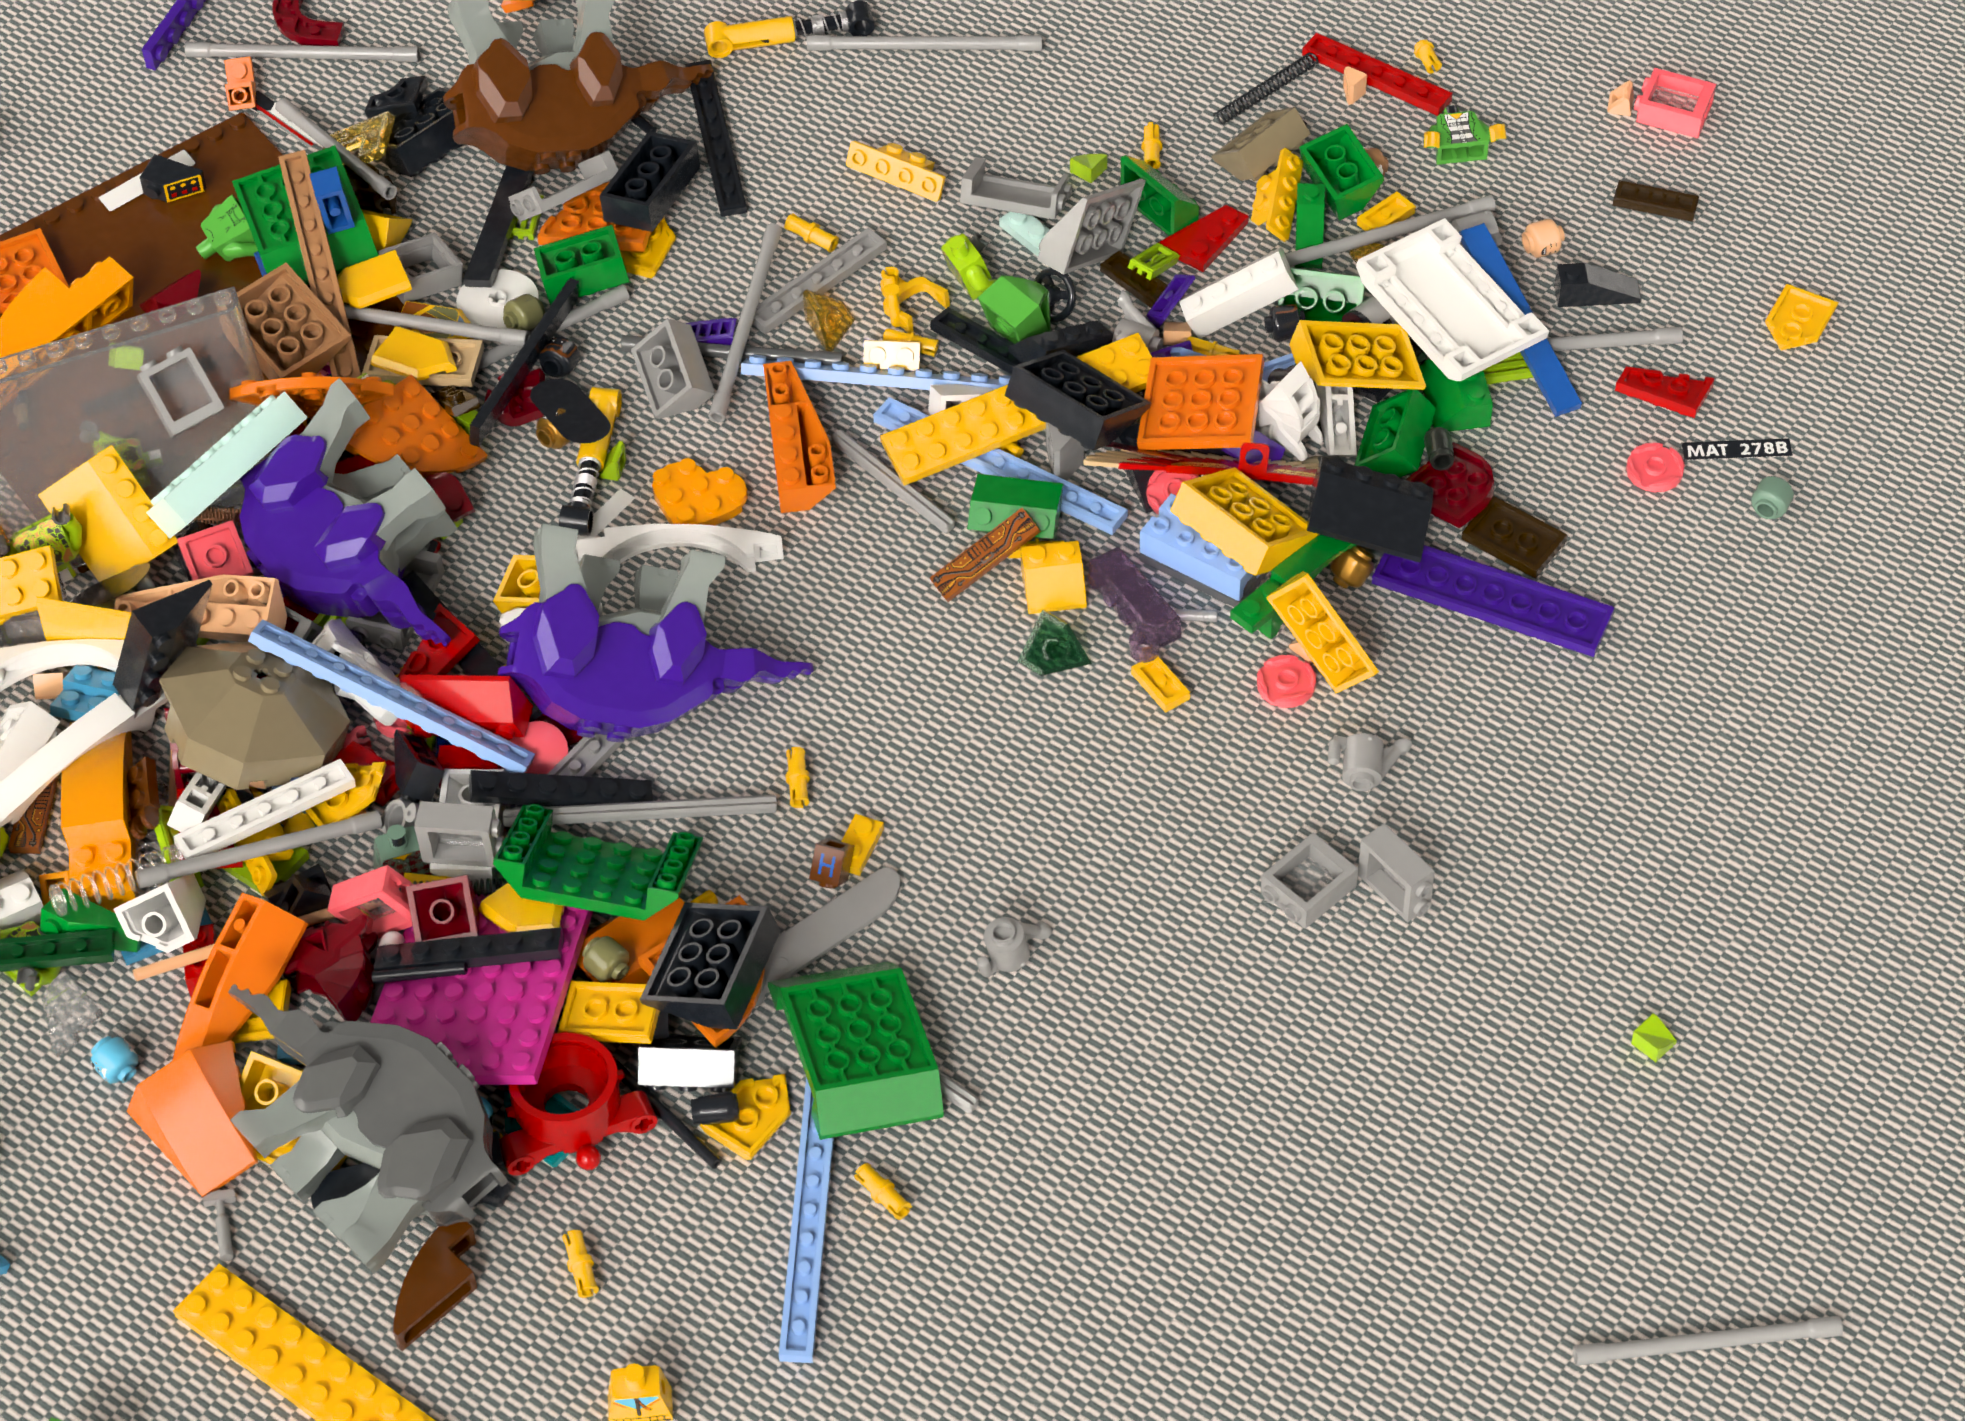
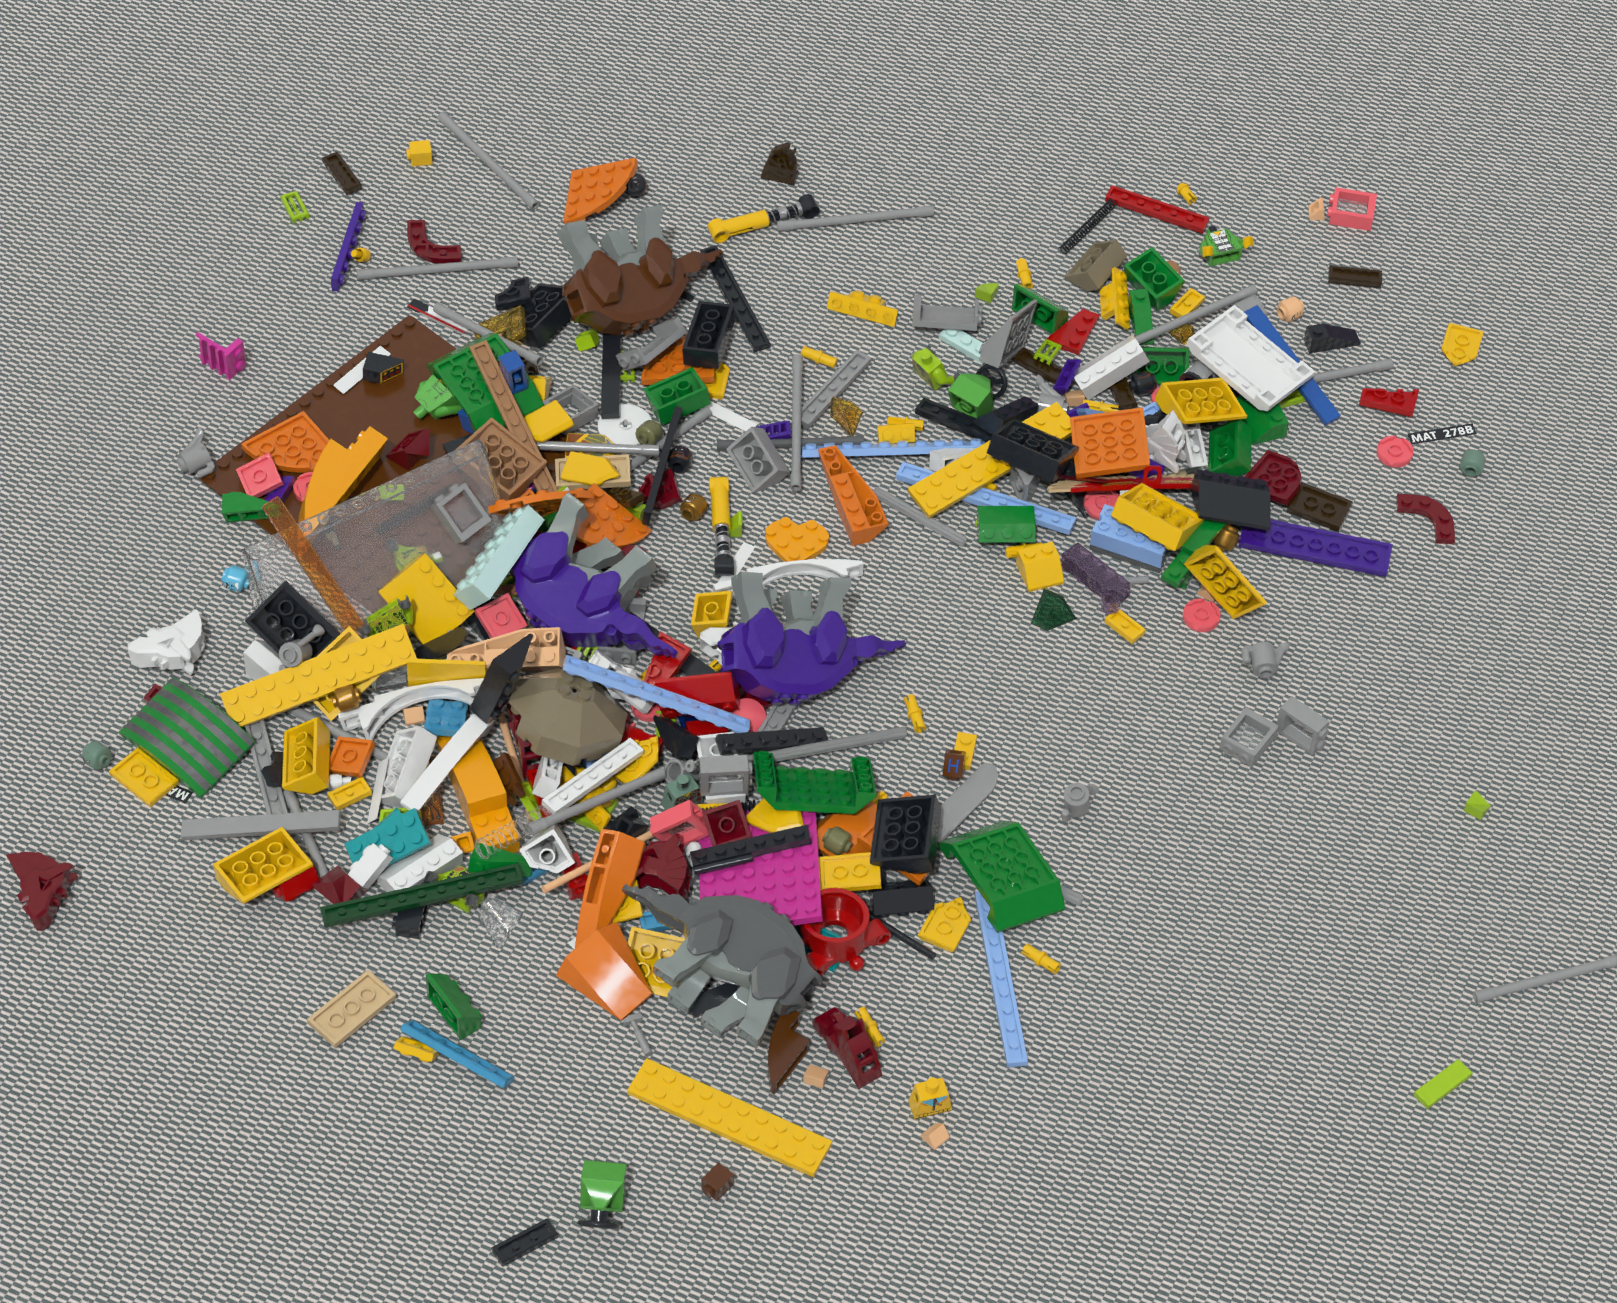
camera: 15 degrees left, 0 degrees up
(114, 1059) = (539, 944): medium azure head -> none
(200, 22) = (361, 254): none -> yellow cylinder
(241, 83) = (403, 295): slope -> none
(472, 1330) = (815, 1076): none -> light nougat slope
(481, 173) = (587, 339): none -> lime slope
(517, 1251) = (848, 1040): none -> dark red animal
(581, 420) = (709, 499): black sticker -> none
(653, 302) = (730, 417): none -> white sticker
(715, 1108) = (927, 923): black piece -> none
(898, 290) = (887, 390): yellow piece -> none
(985, 554) = (995, 557): dark orange tile -> none
(1252, 334) = (1123, 395): none -> dark brown plate
(1354, 84) = (1144, 218): light nougat slope -> none
(1439, 448) = (1261, 455): pearl dark grey piece -> none
(1693, 563) = (1433, 510): none -> dark red plate

